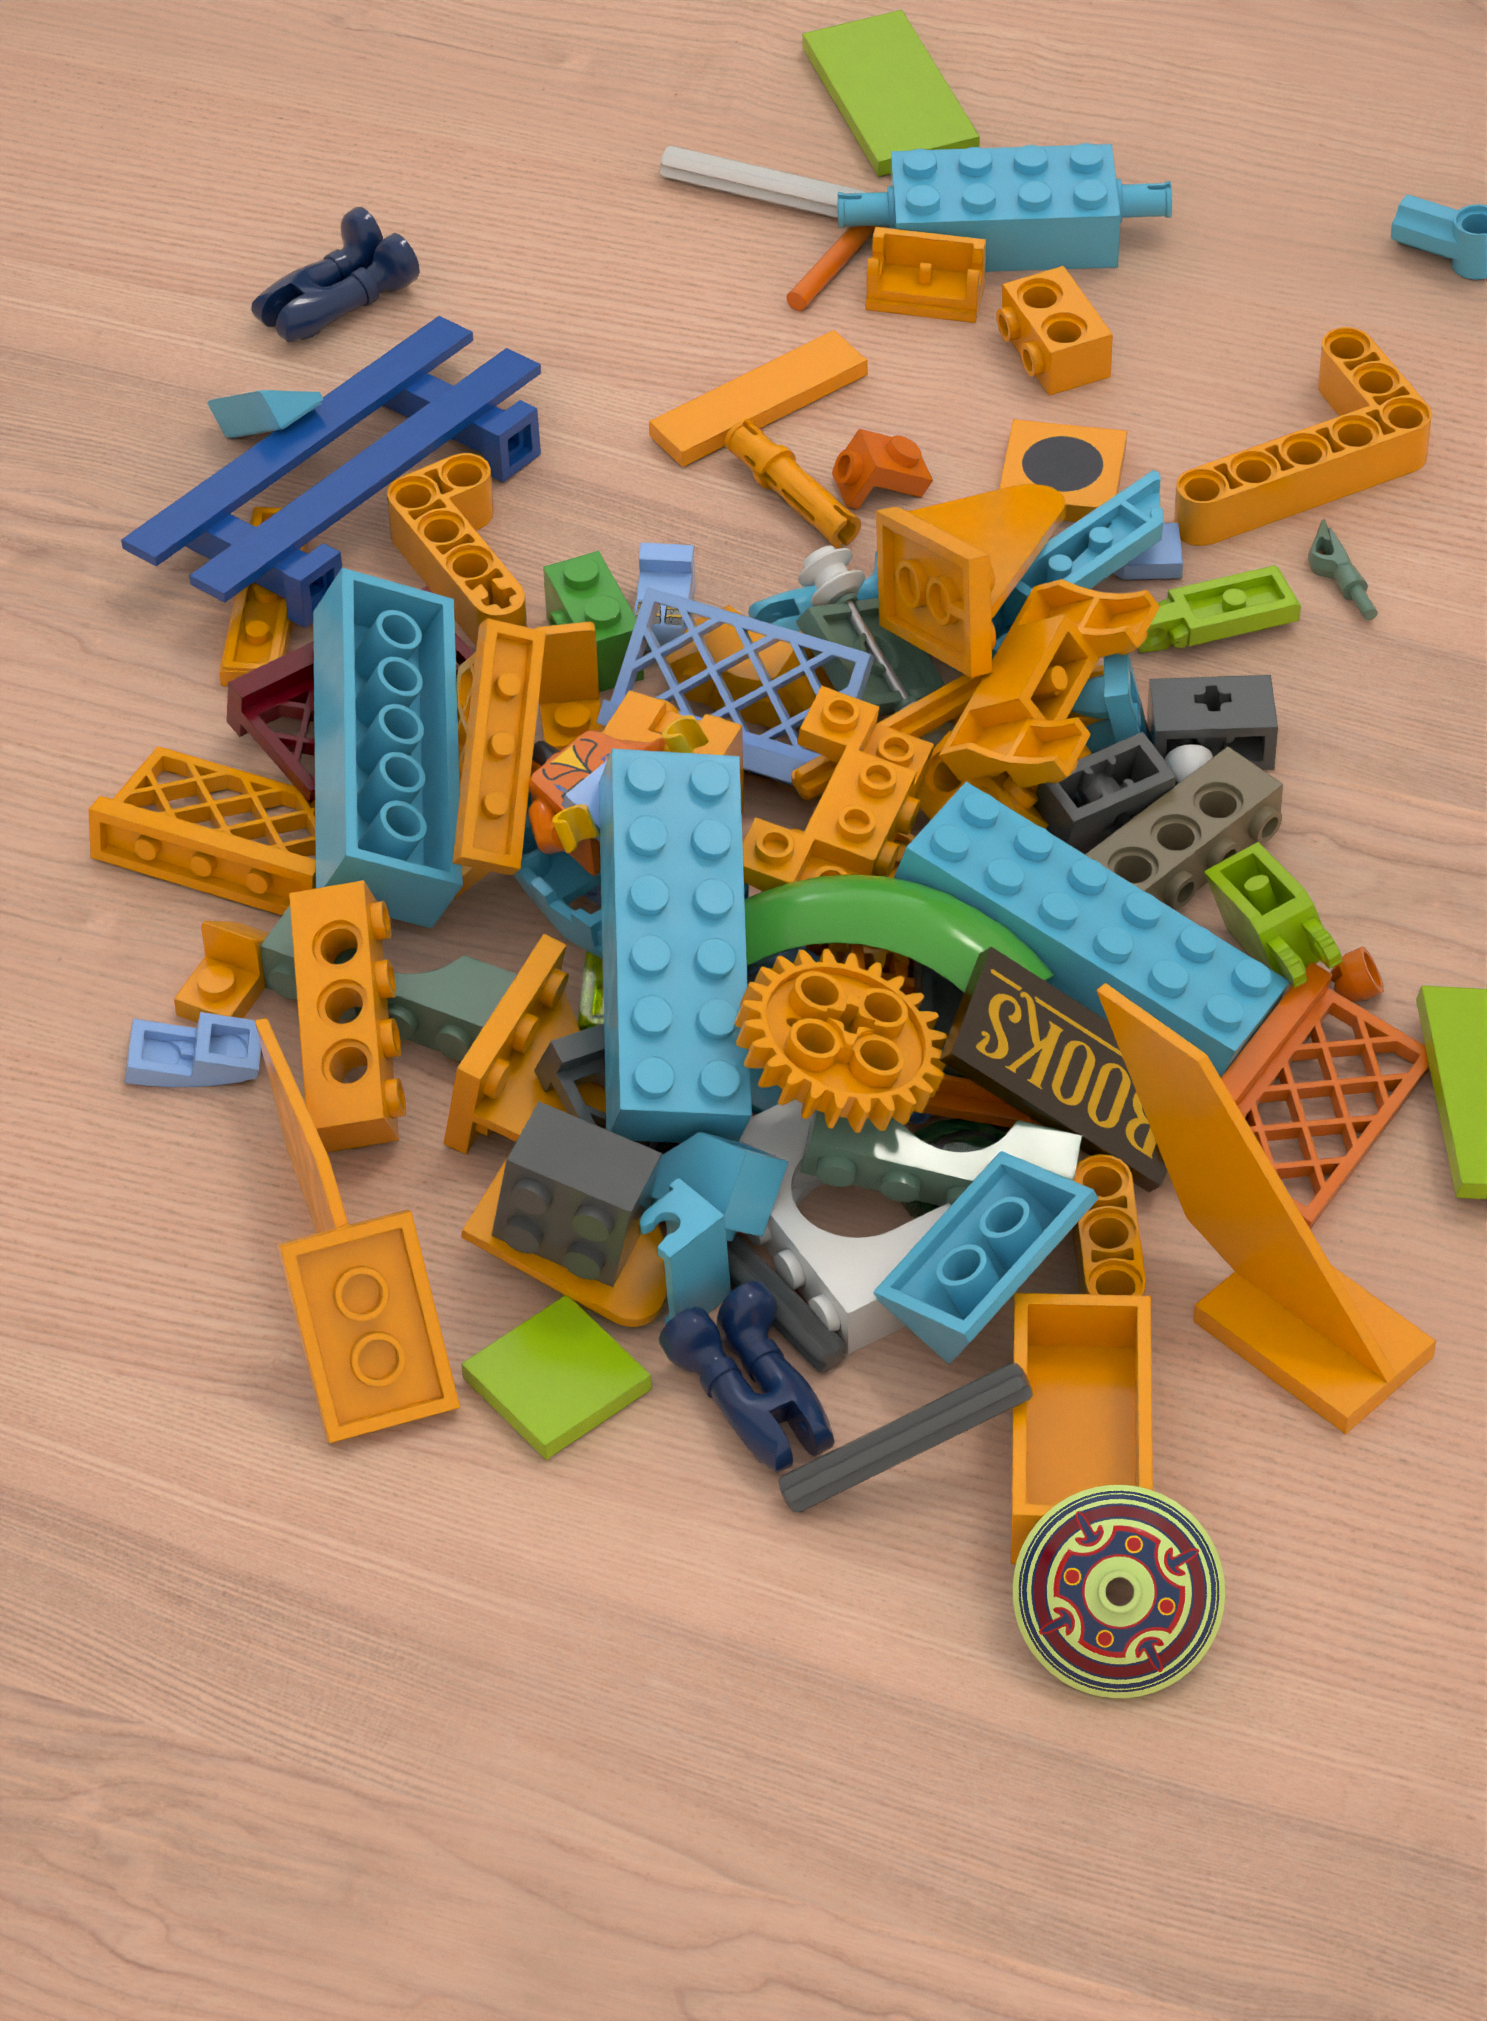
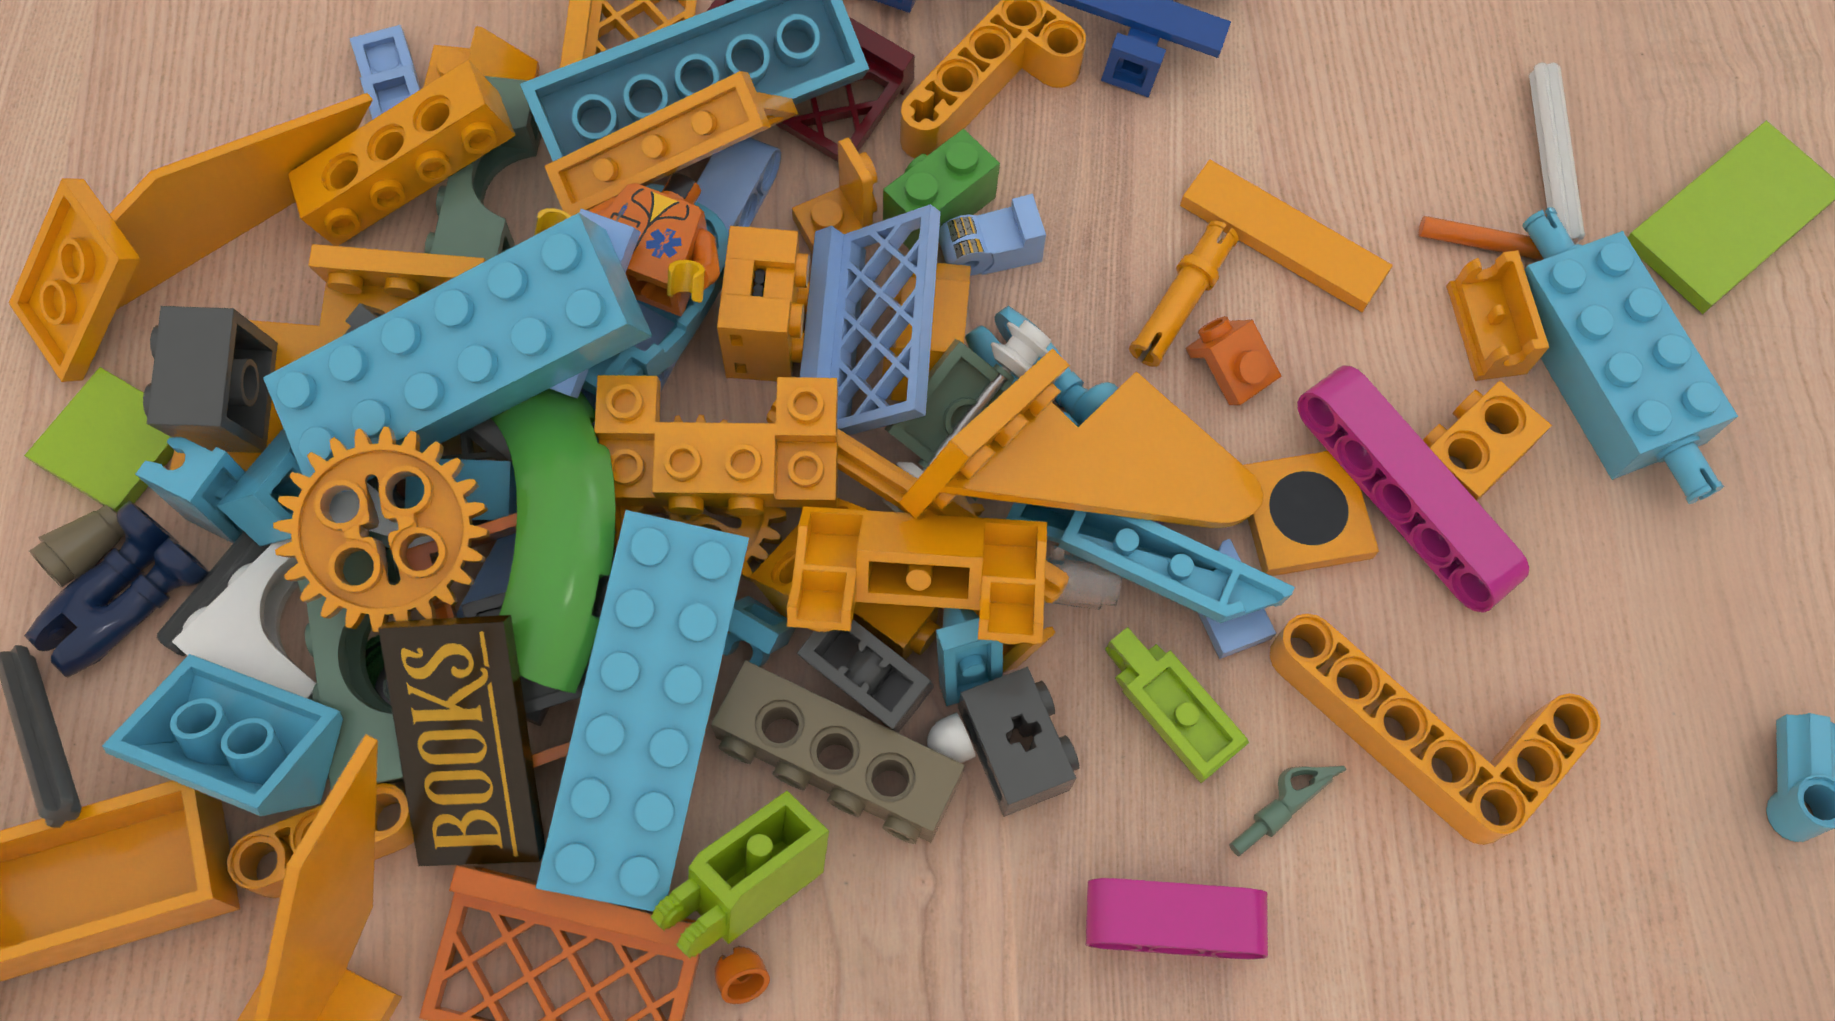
camera: 65 degrees right, 20 degrees up
(682, 1413) = (78, 545): none -> dark tan cone
(1077, 381) = (1413, 489): none -> dark pink beam
(1420, 663) = (1177, 918): none -> dark pink beam

